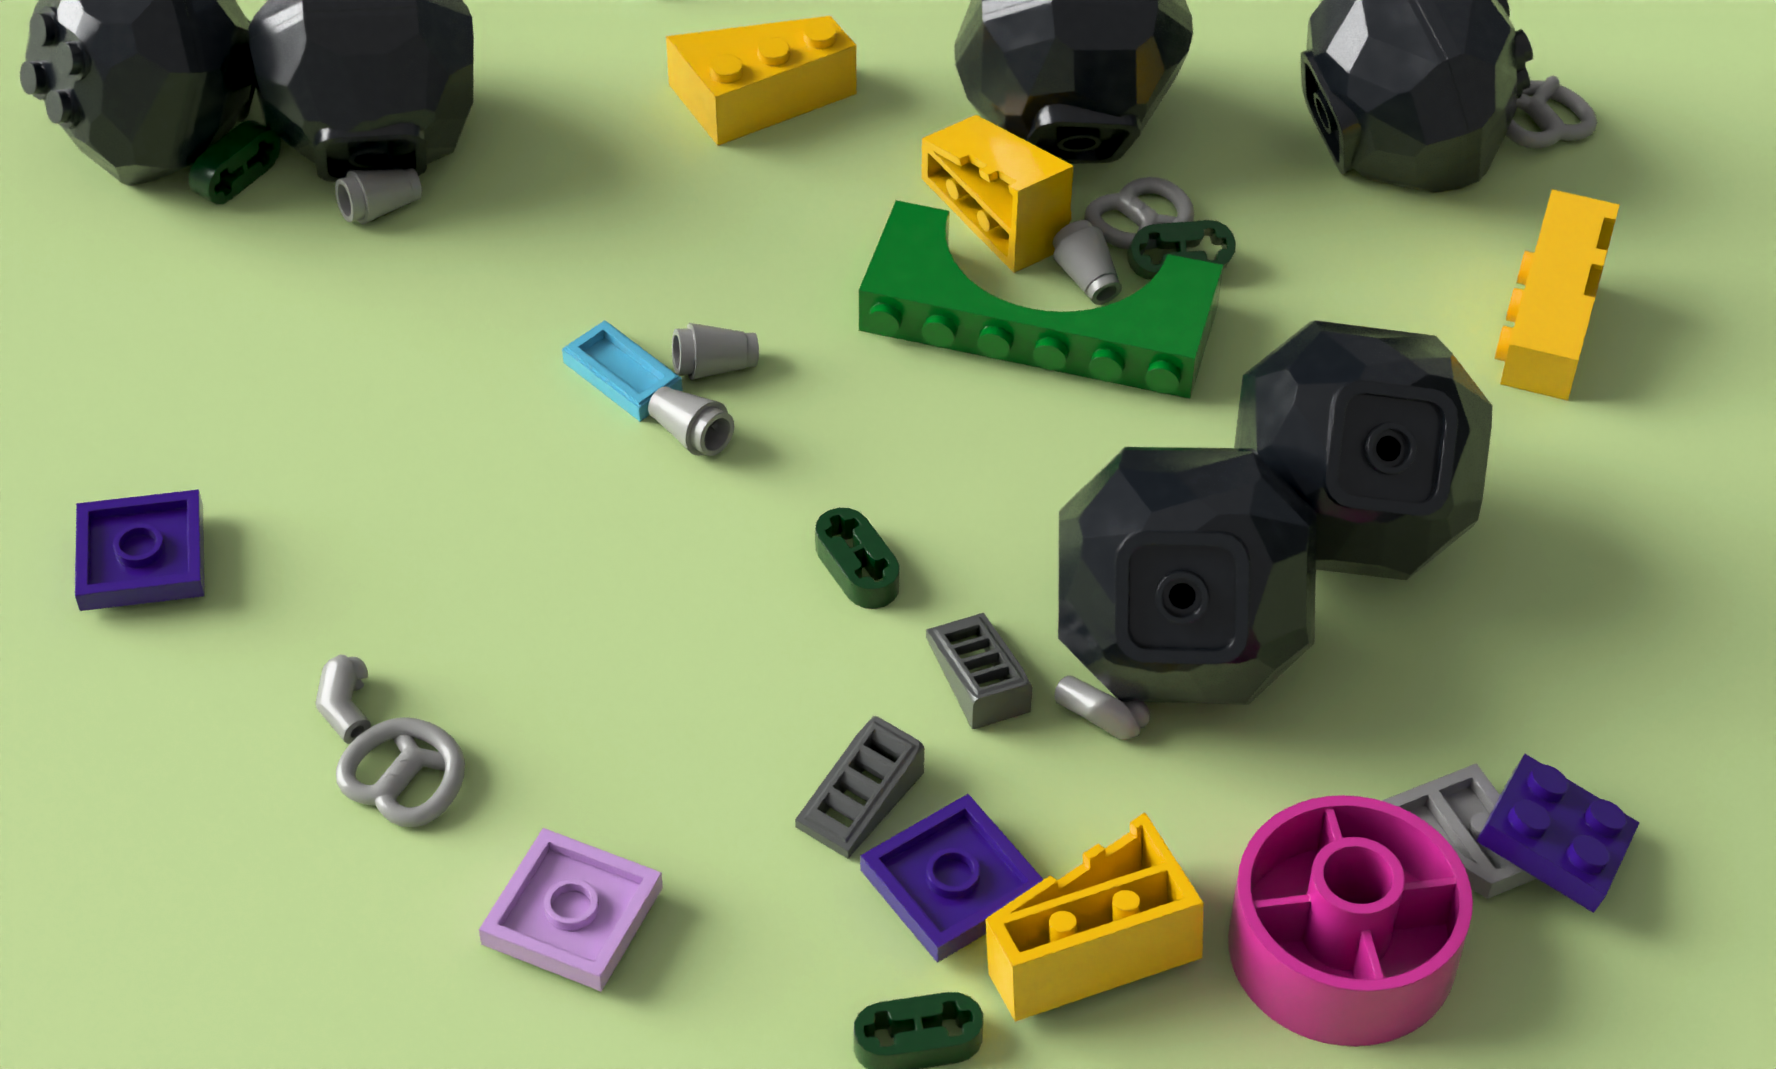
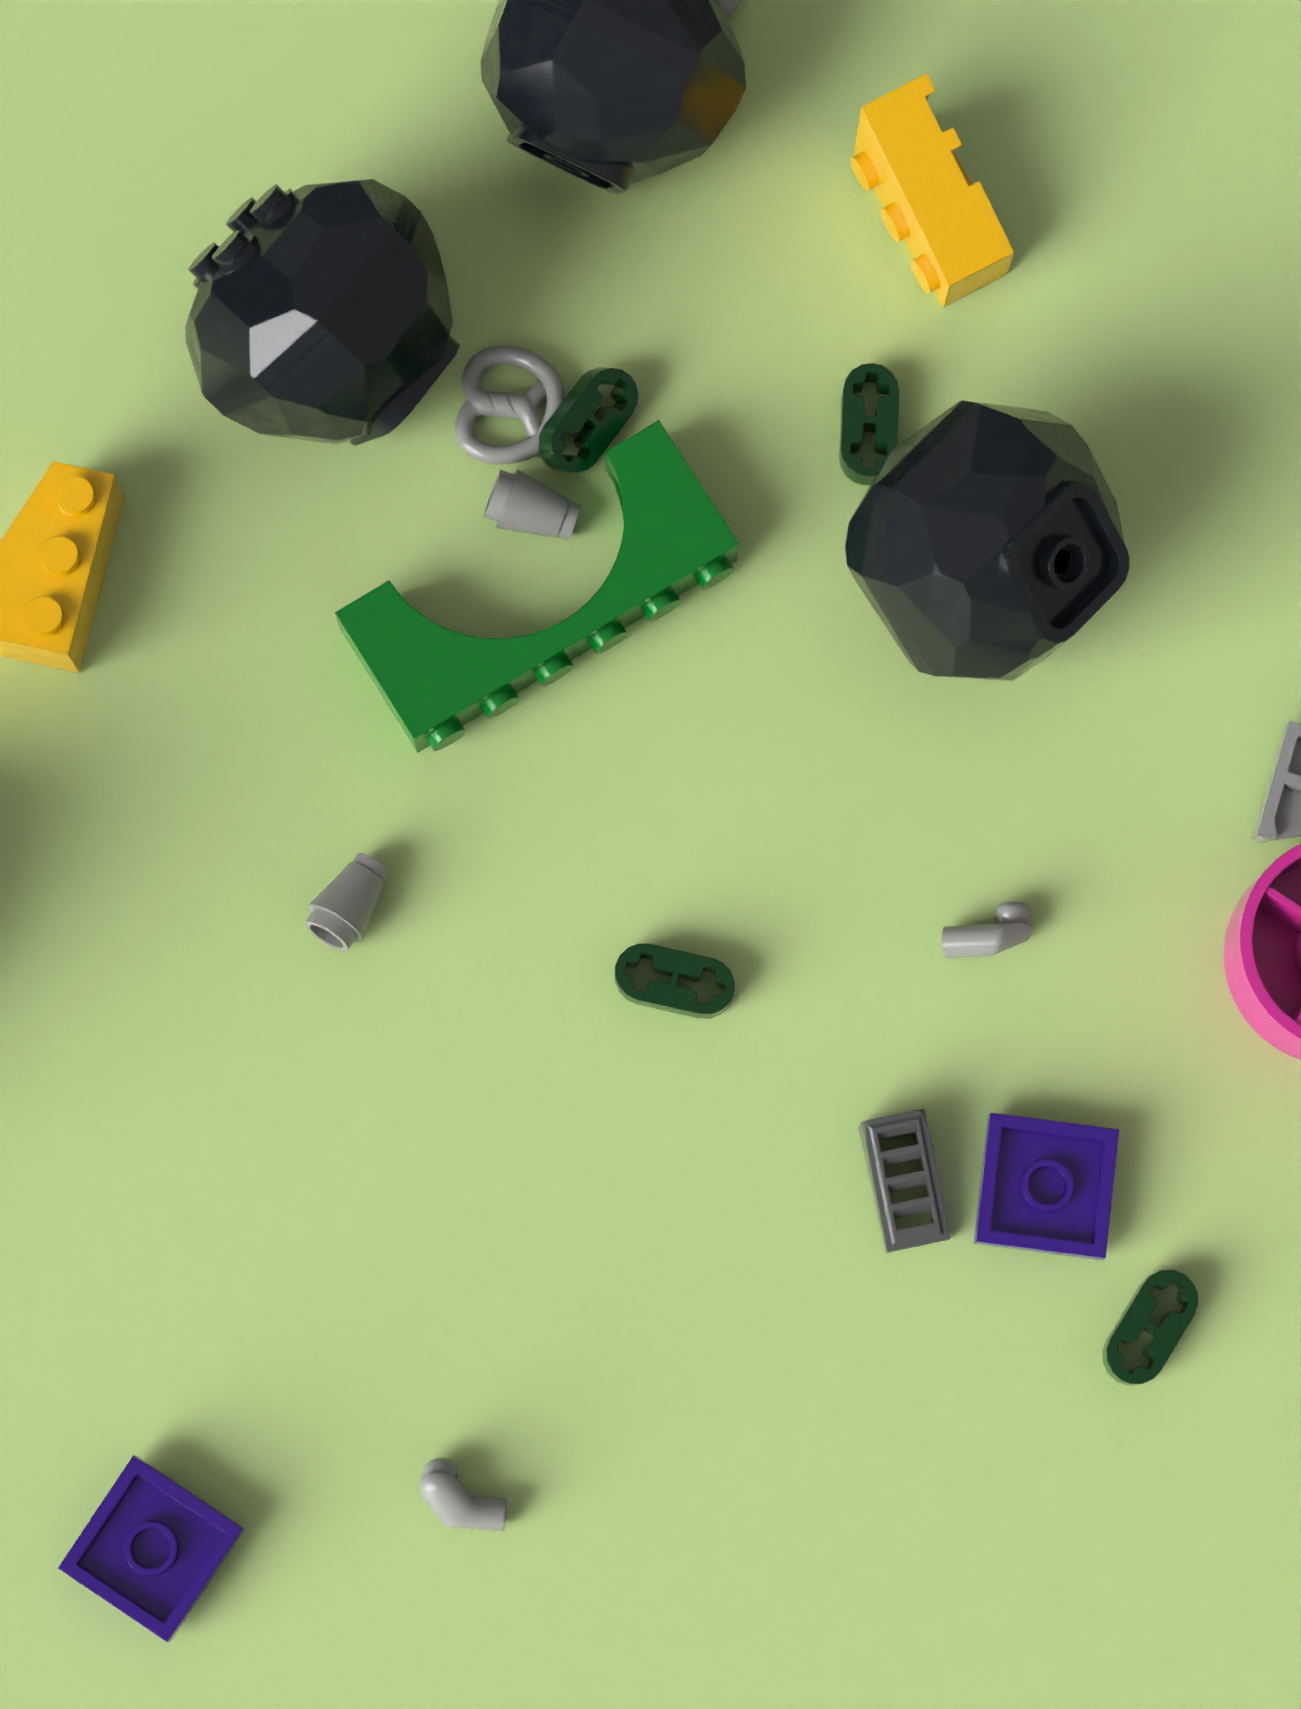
camera: 50 degrees left, 30 degrees up
(403, 769) = (575, 1507): light grey piece -> none
(571, 909) = (829, 1489): lavender plate -> none
(619, 368) = (291, 989): medium azure tile -> none
(693, 420) = (411, 987): light grey cone -> none
(990, 703) = (897, 973): dark grey slope -> none
(1000, 188) = (383, 503): yellow wedge -> none
(1097, 926) = (1193, 1126): yellow wedge -> none
(1187, 575) = (989, 798): black rock -> none

